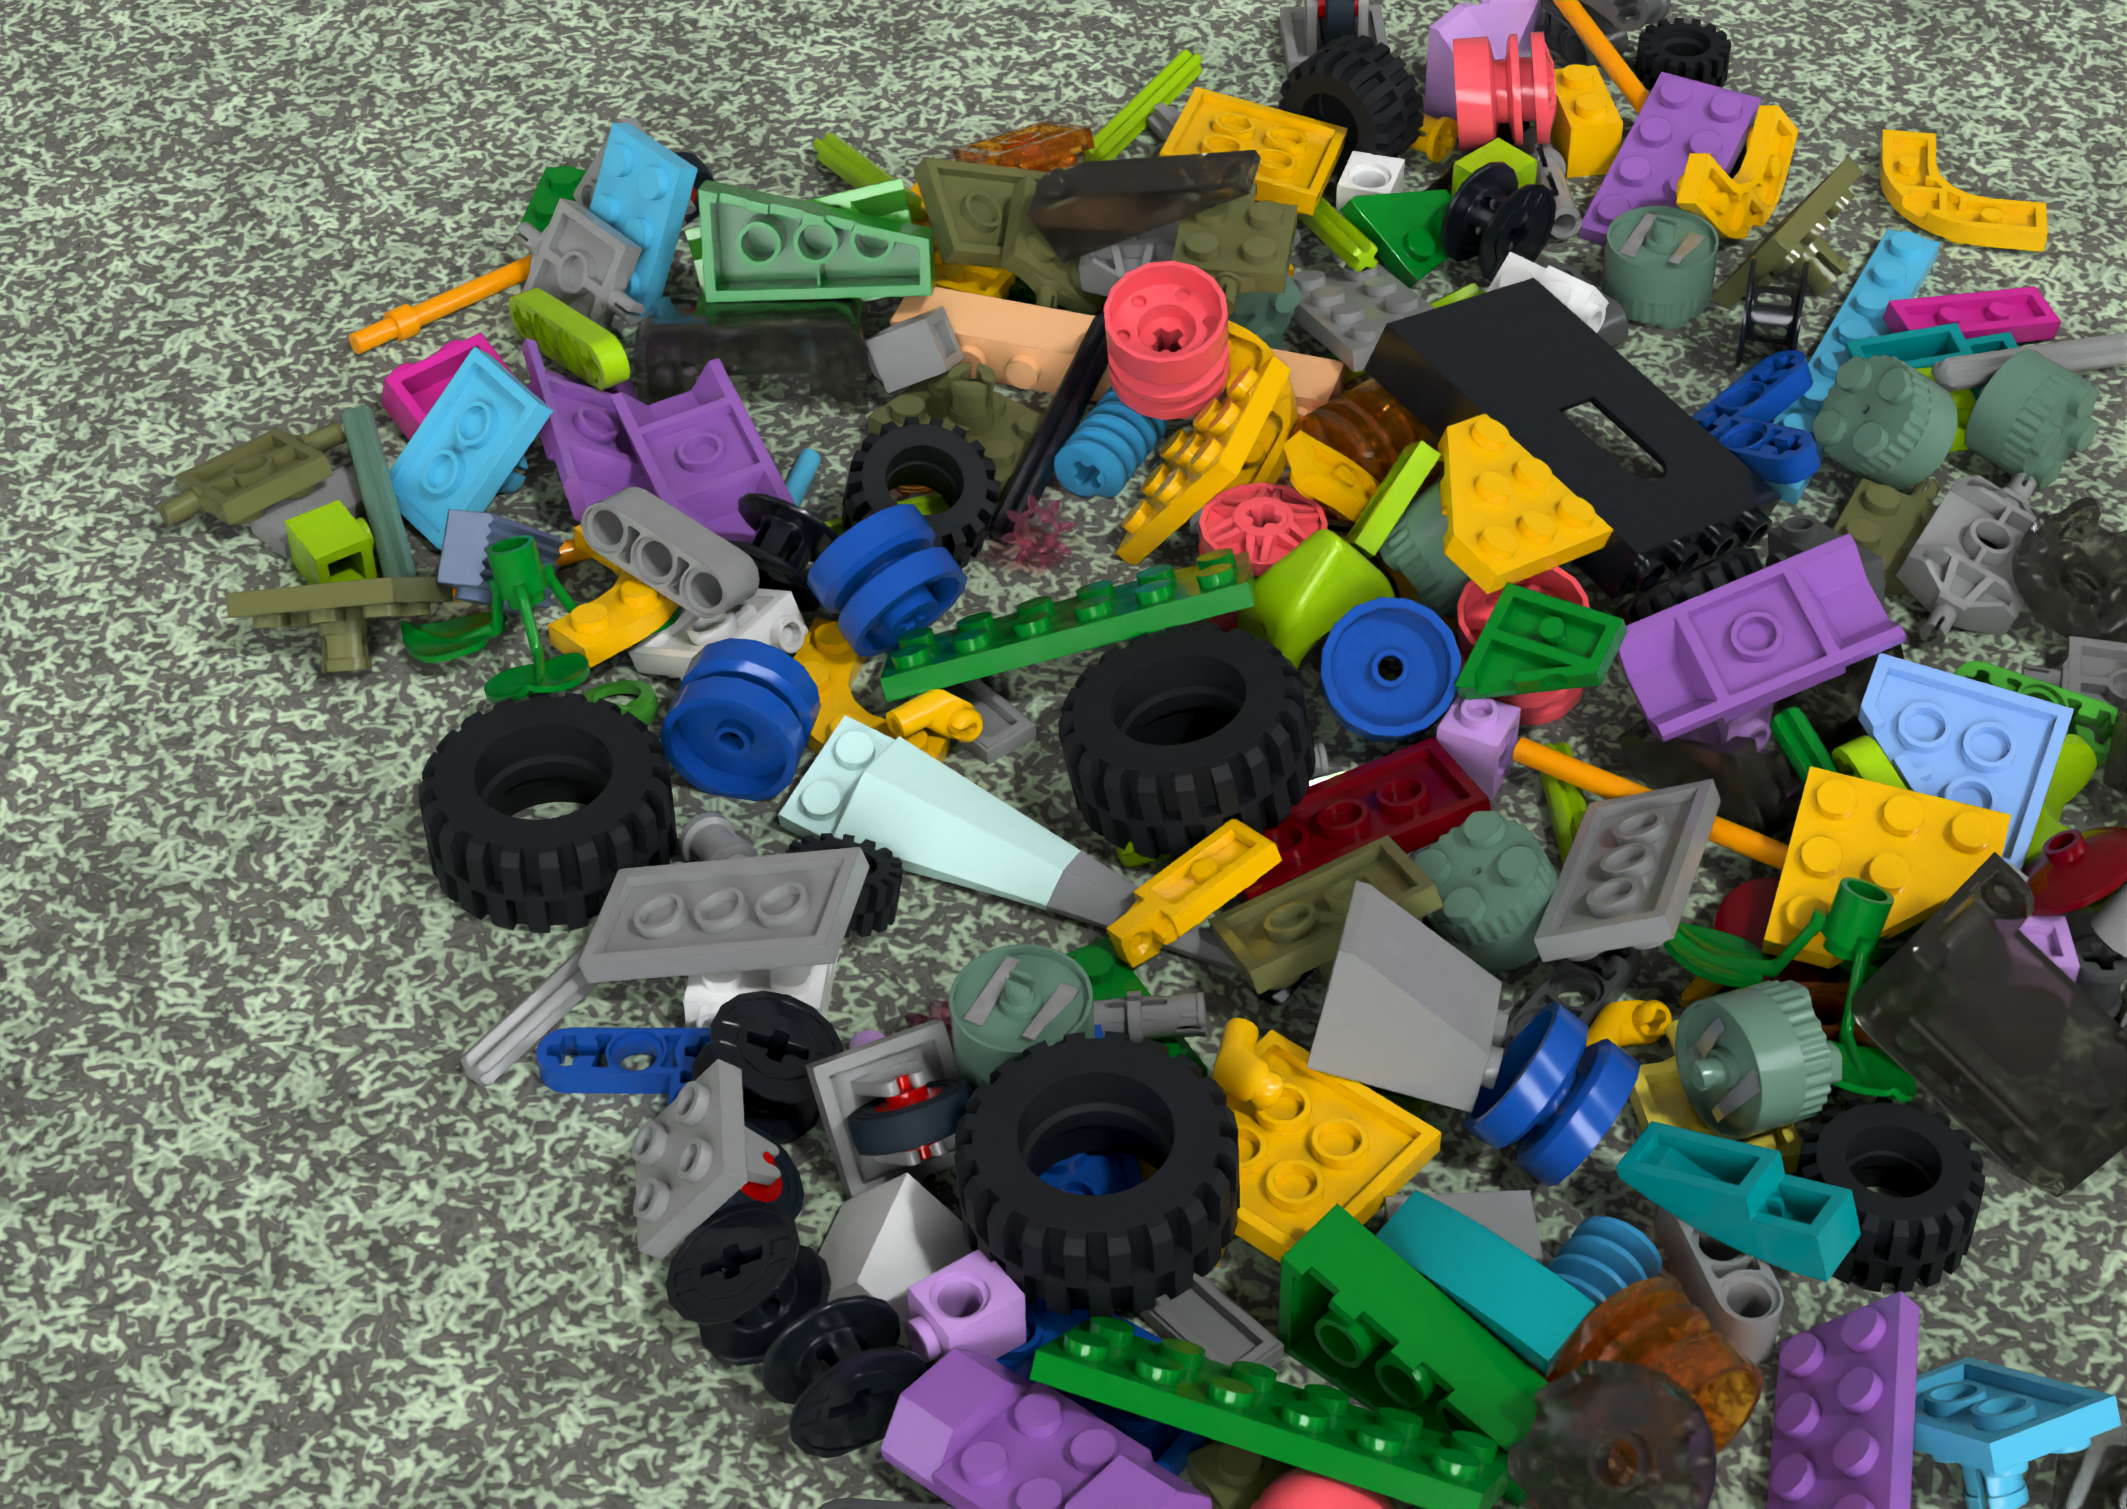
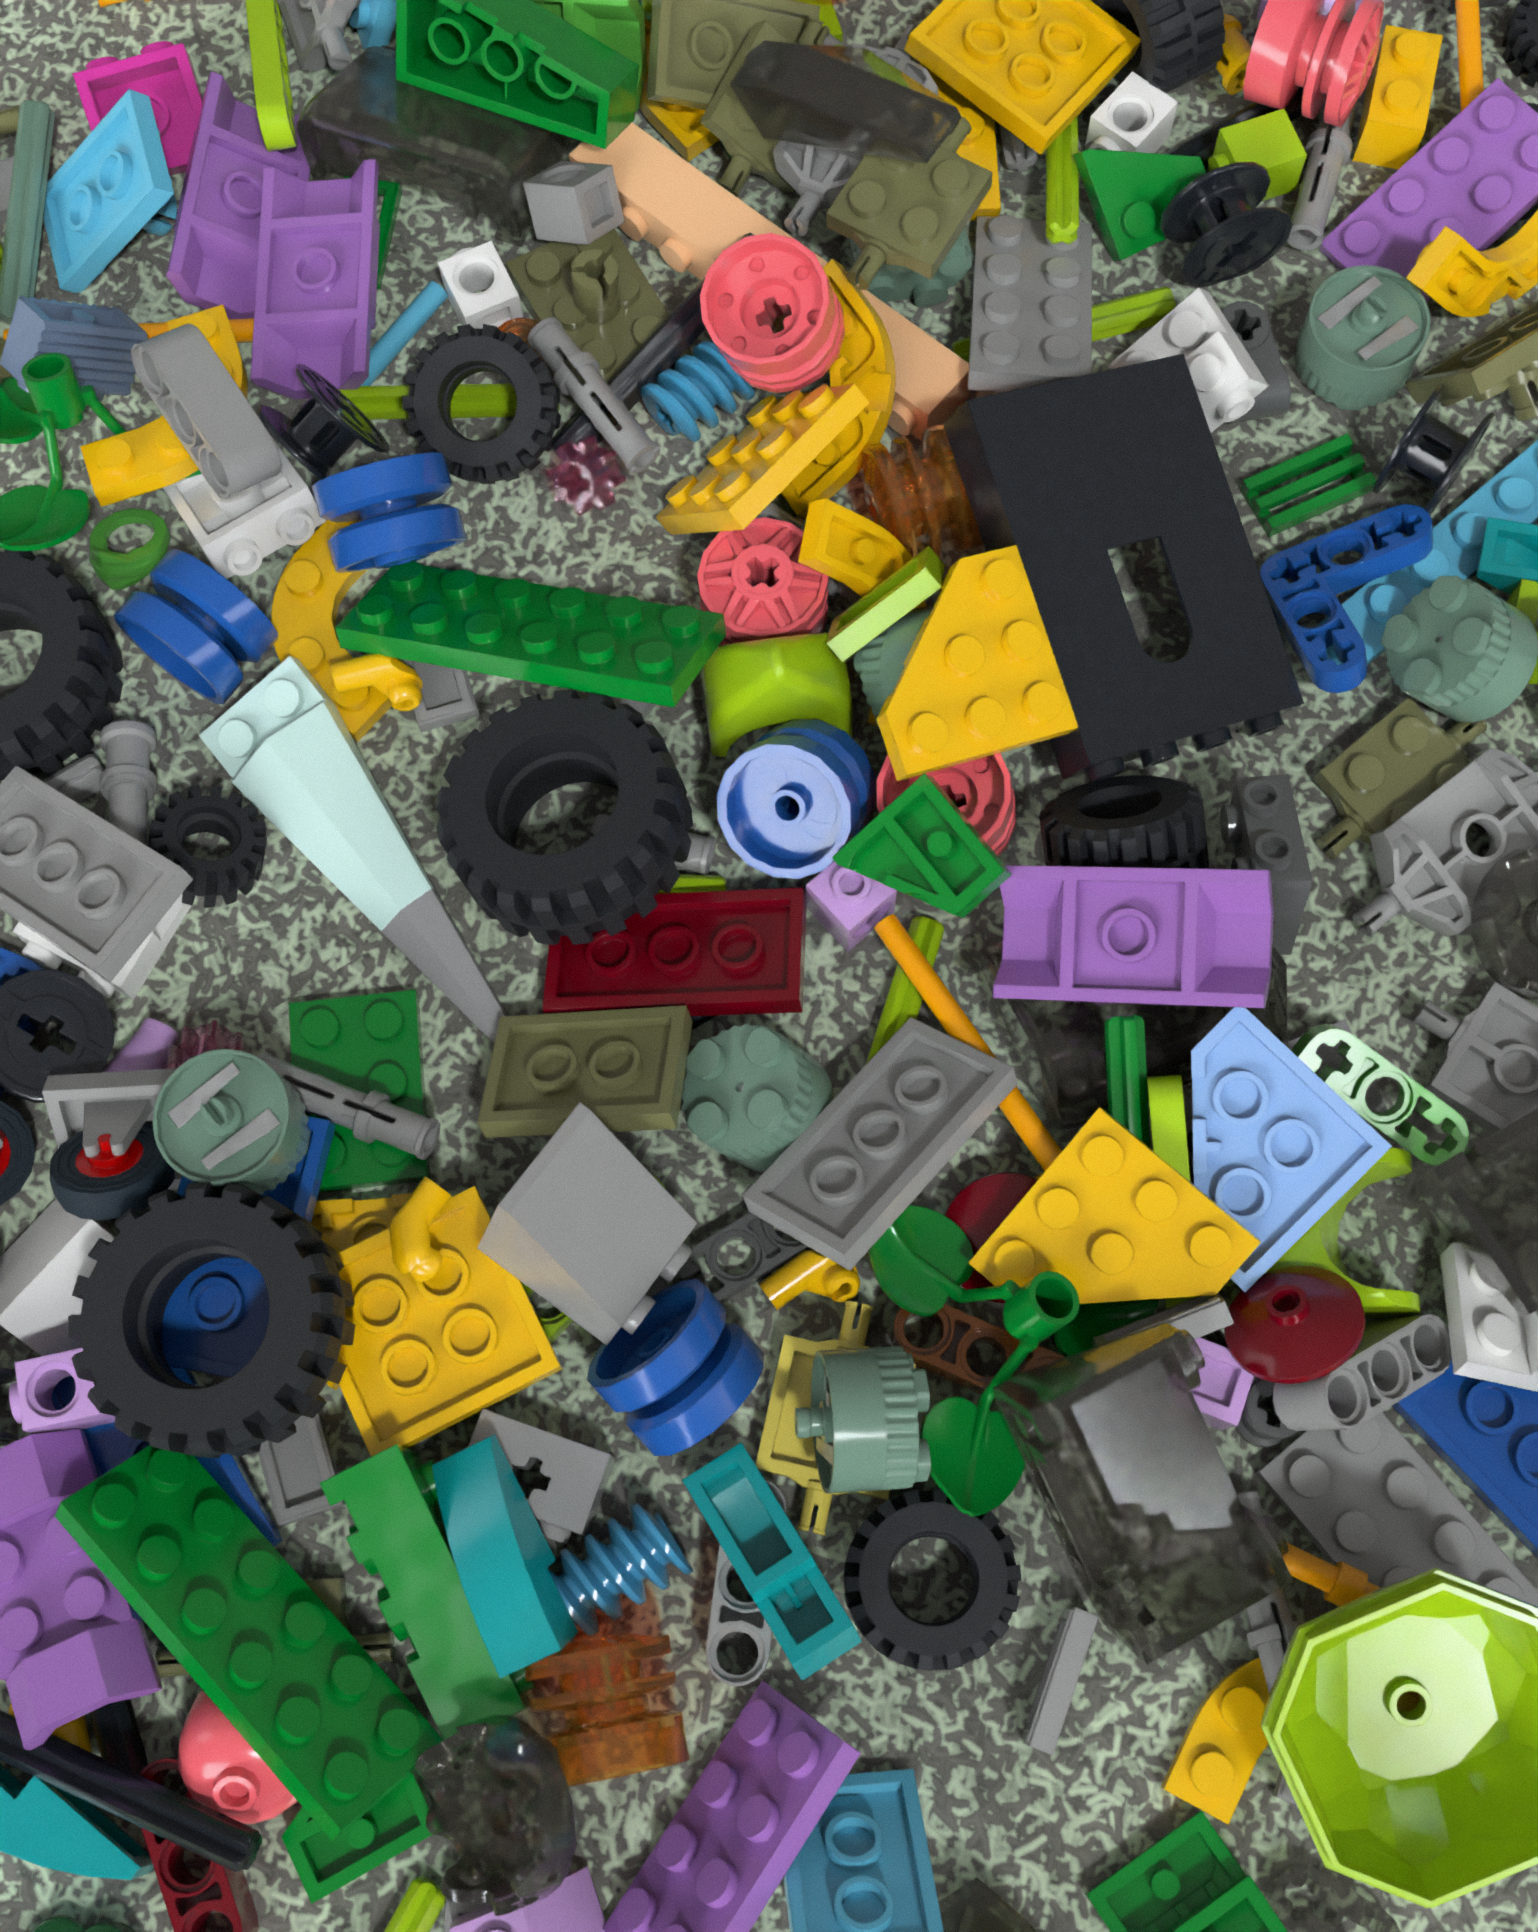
camera: 25 degrees right, 30 degrees up
(844, 428) = (480, 270): none -> white brick
(1037, 472) = (555, 349): none -> light grey pin
(1191, 890) = (494, 987): yellow hinge -> none
(1683, 361) = (1349, 464): none -> green tile
(2052, 1234) = (1059, 1679): none -> light grey tile

